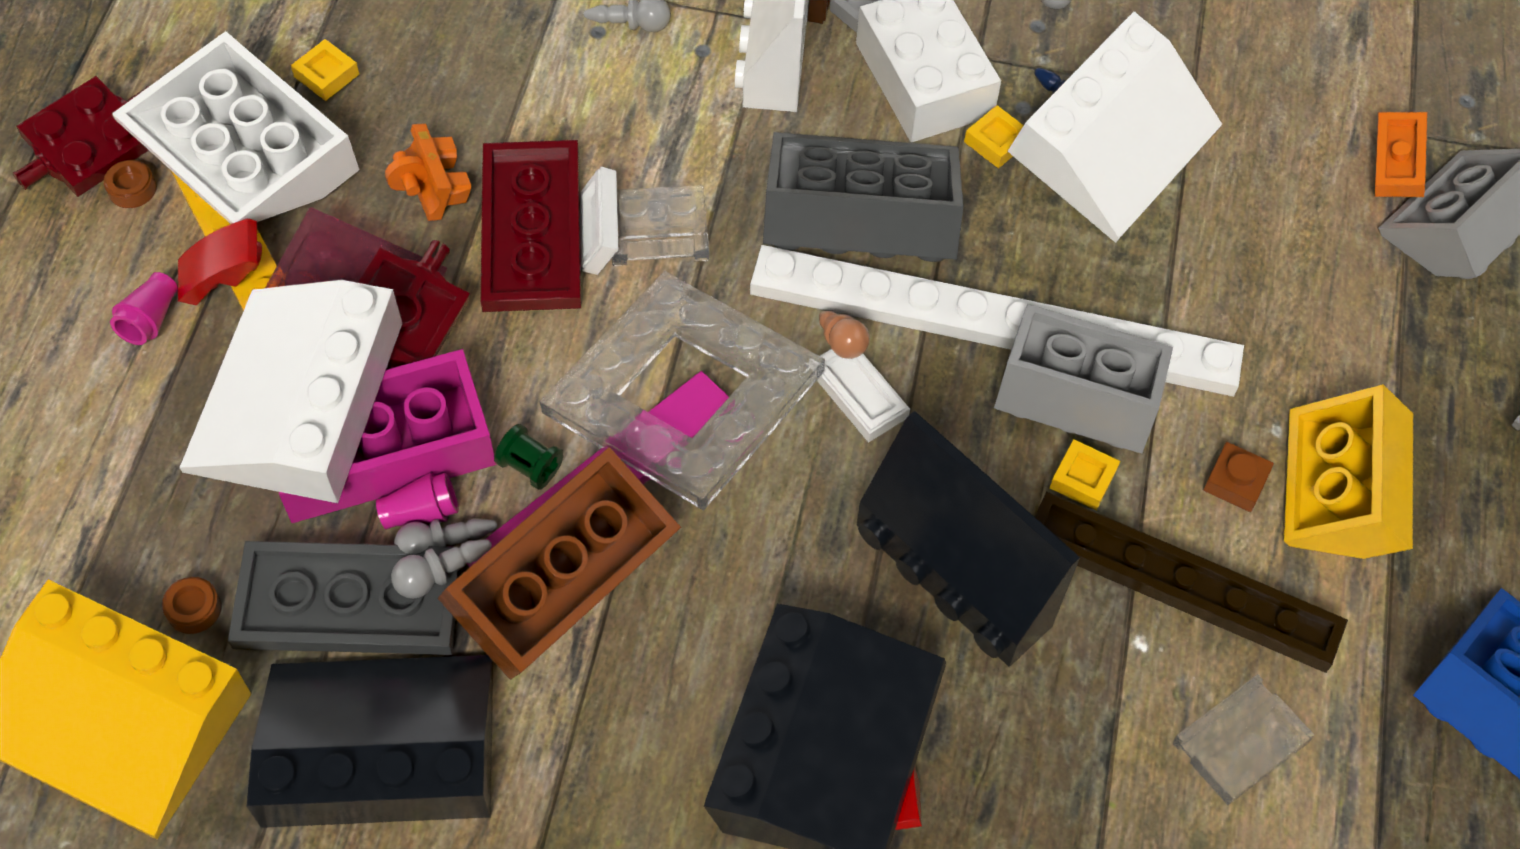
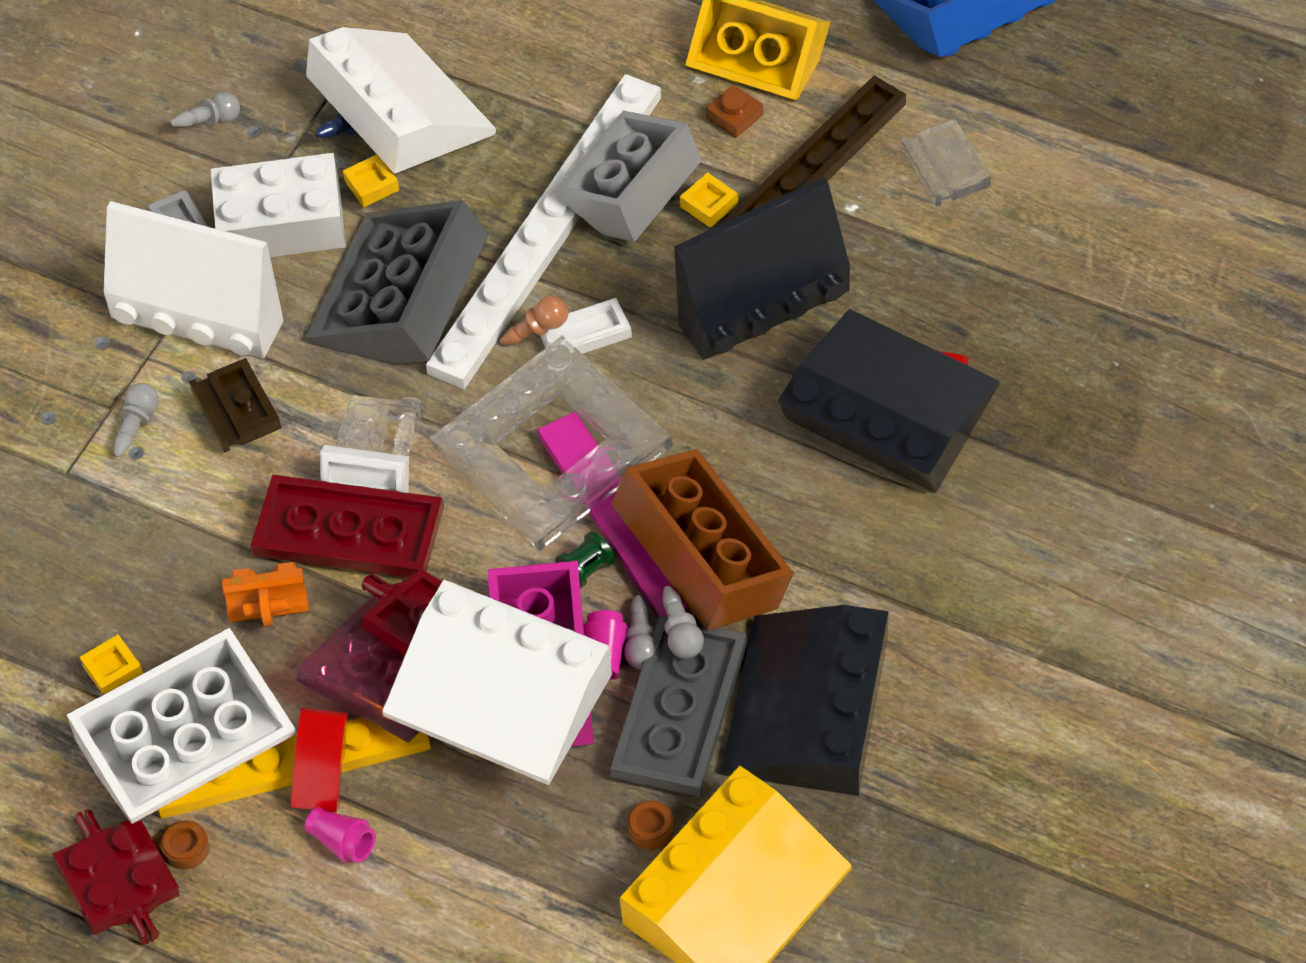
camera: 70 degrees left, 5 degrees down
(665, 91) = (235, 405): none -> dark brown plate

